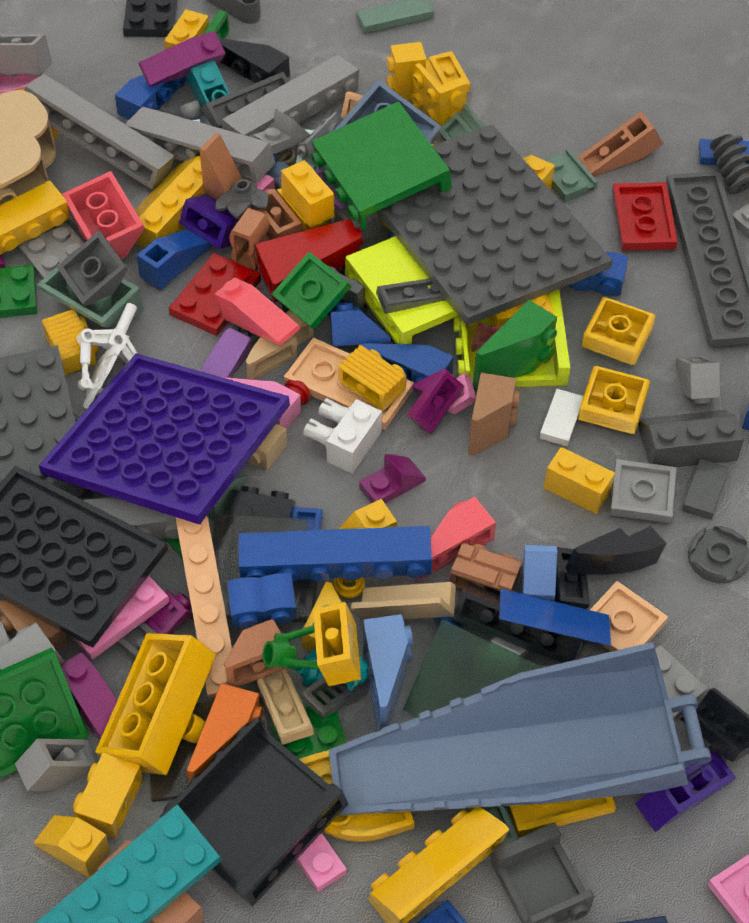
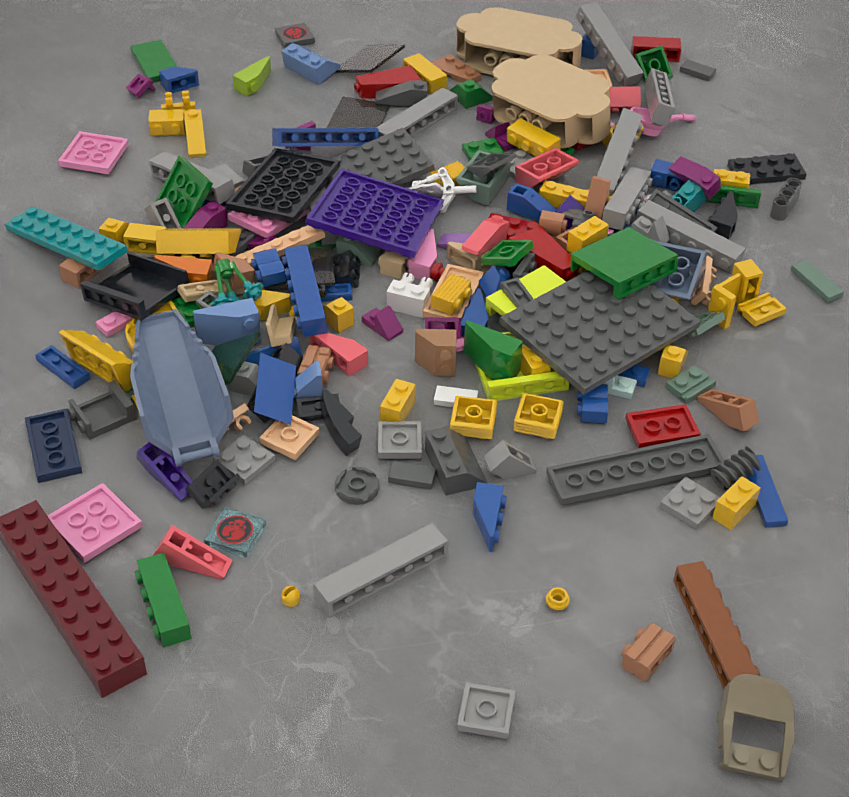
camera: 80 degrees right, 10 degrees down
(336, 644) = (225, 280): yellow brick -> none

